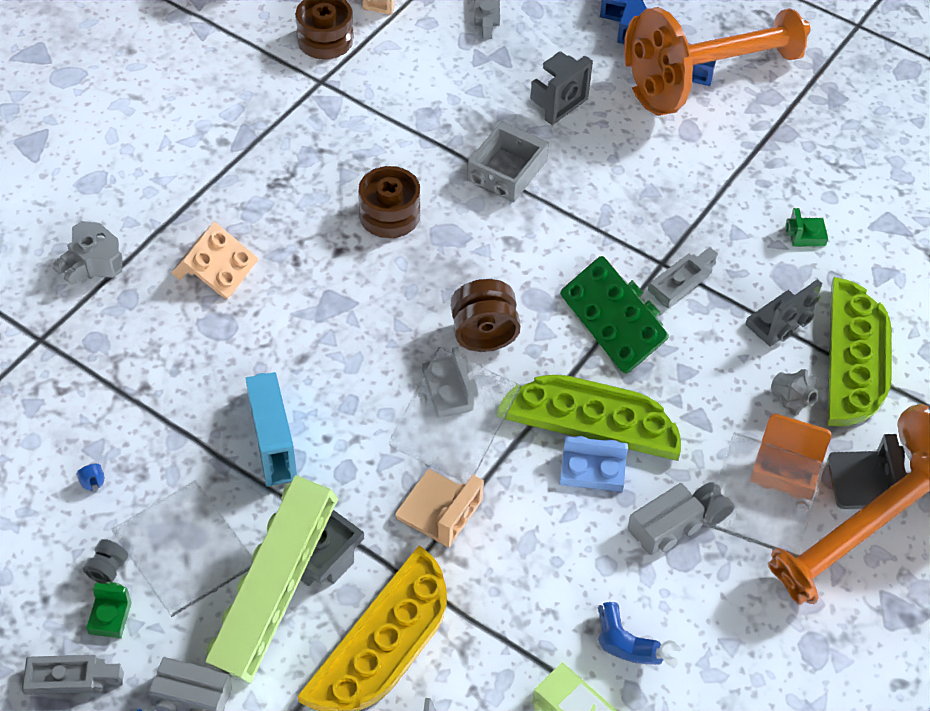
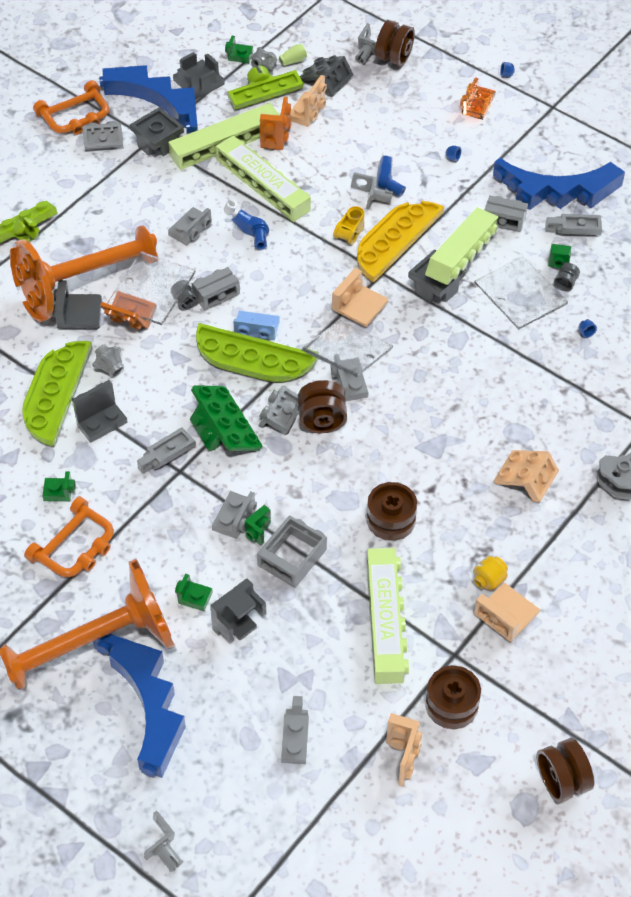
camera: 175 degrees left, 0 degrees up
(262, 108) = (506, 611): none -> light nougat bracket
(271, 428) = (472, 343): medium azure slope -> none
(273, 142) = (490, 573): none -> yellow head
(396, 103) = (385, 616): none -> yellowish green brick
(461, 647) = (350, 225): none -> yellow piece
(542, 332) = (281, 410): none -> light grey bracket
(553, 189) = (257, 524): none -> green bracket
(582, 207) = (233, 514): none -> light grey bracket
(615, 124) = (192, 593): none -> green bracket
(732, 649) = (190, 225): none -> light grey bracket
(747, 152) = (85, 560): none -> orange bar

